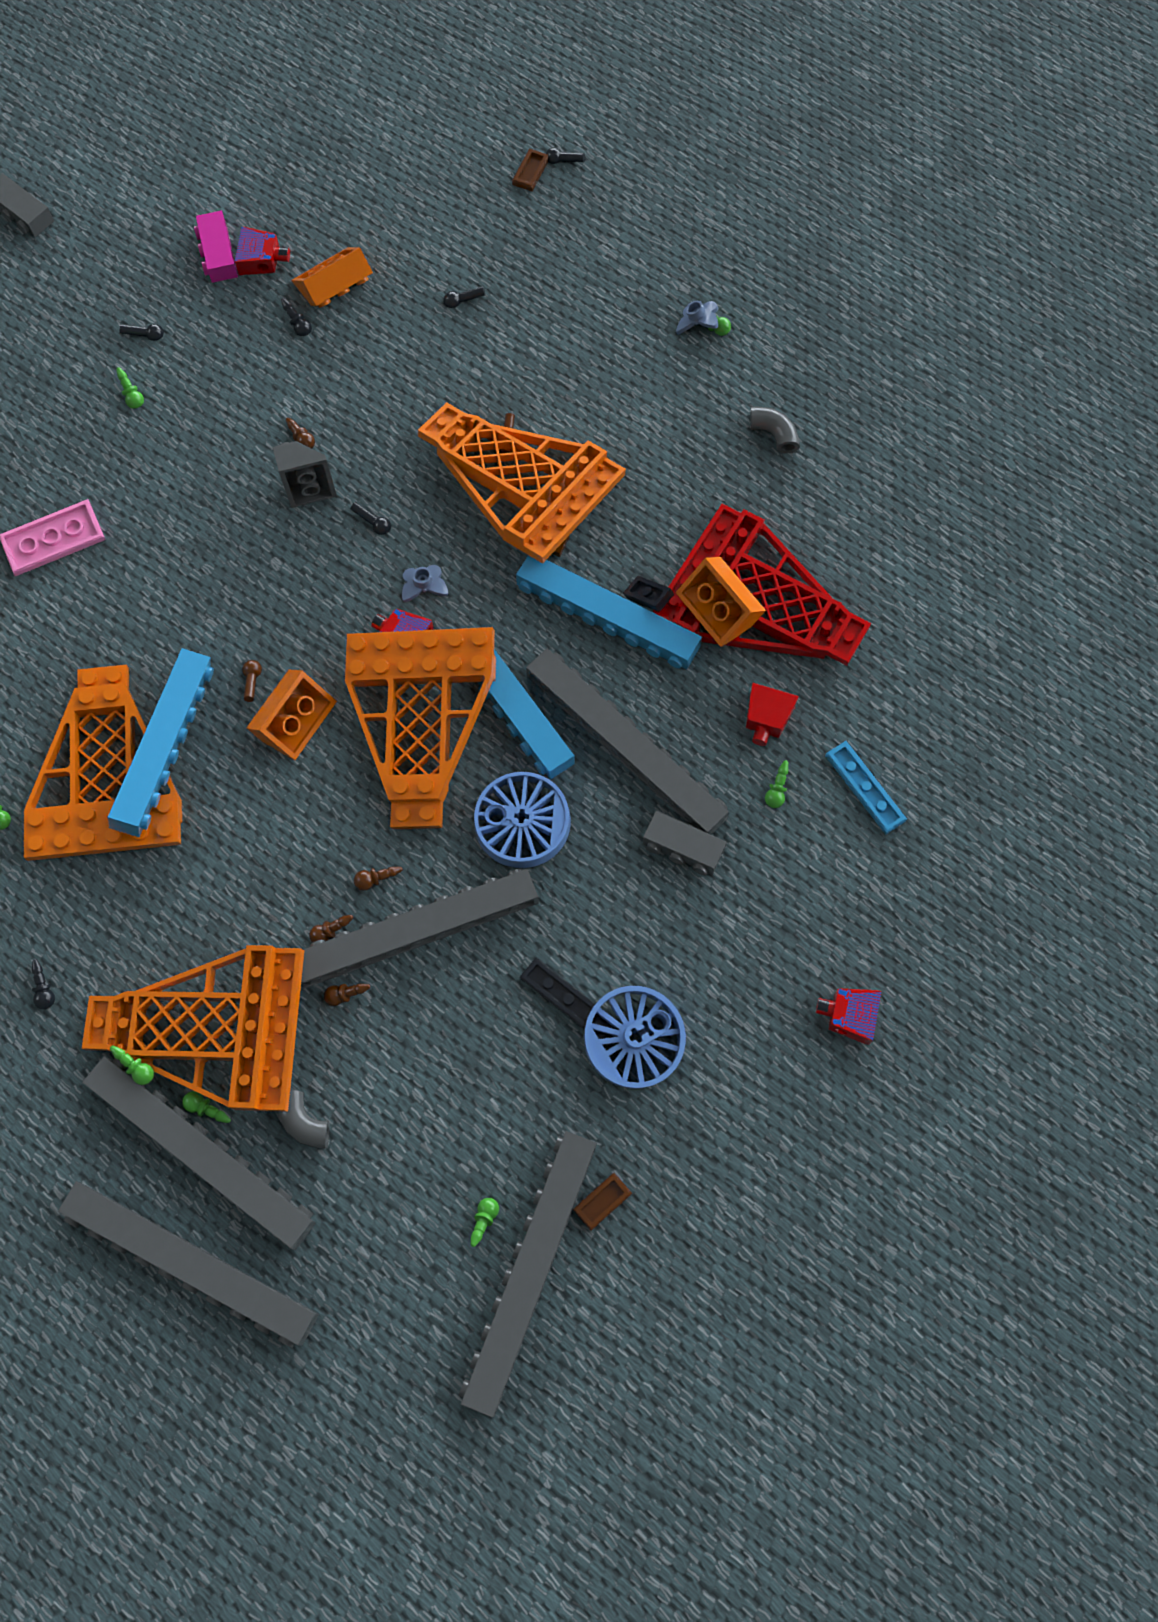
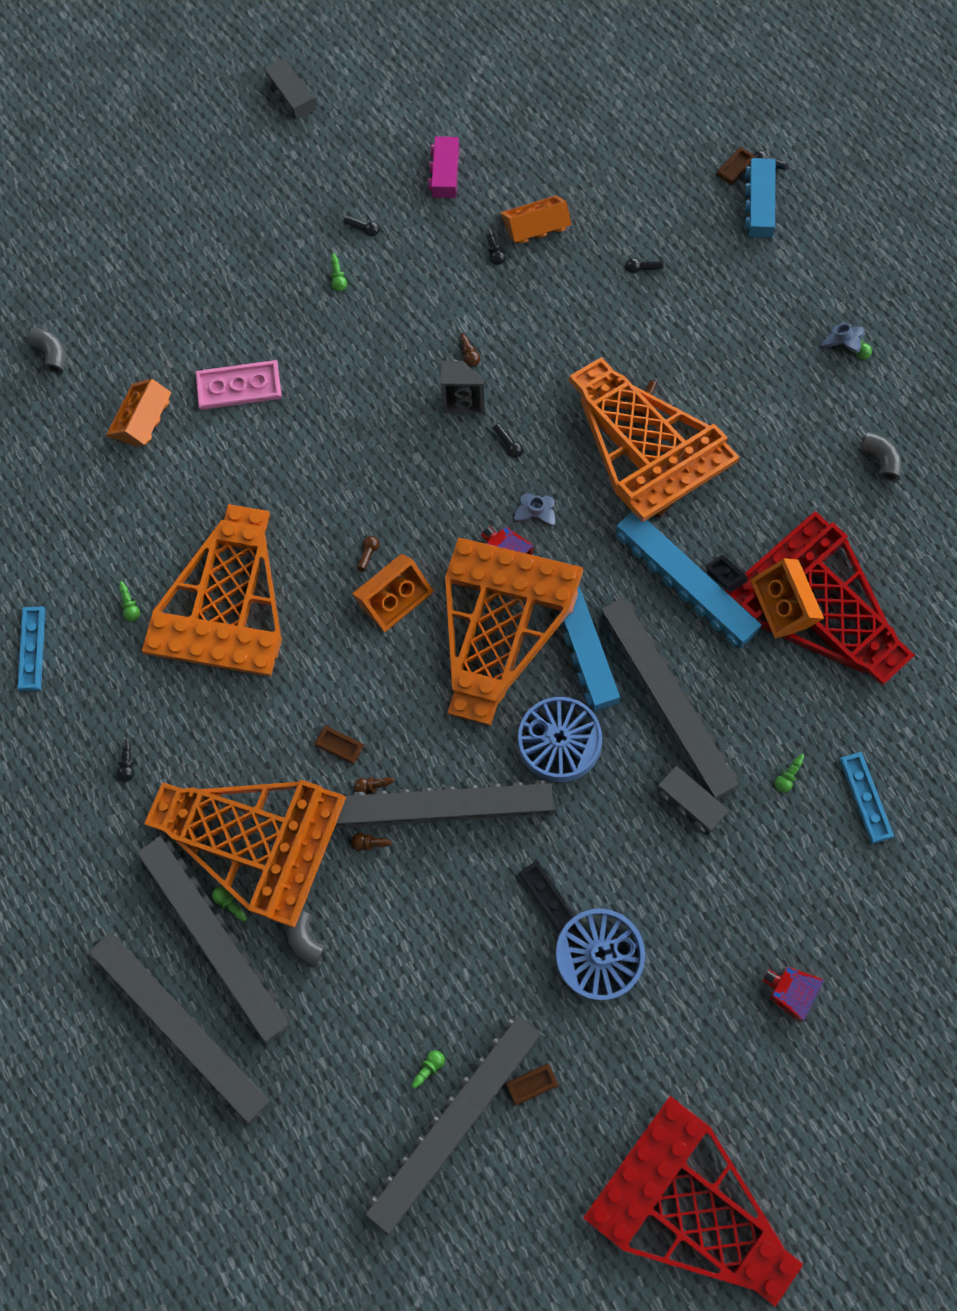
camera: 20 degrees right, 0 degrees up
(141, 1072) = (186, 859): bright green bar -> none
(160, 743) = (278, 586): dark azure brick -> none
(258, 252) = (479, 181): red torso -> none
(280, 896) = (339, 745): none -> reddish brown tile
(364, 879) = (413, 751): reddish brown bar -> none
(567, 195) = (761, 198): none -> dark azure brick
(756, 1260) = (646, 1176): none -> red wing
(768, 712) = (800, 707): red torso -> none

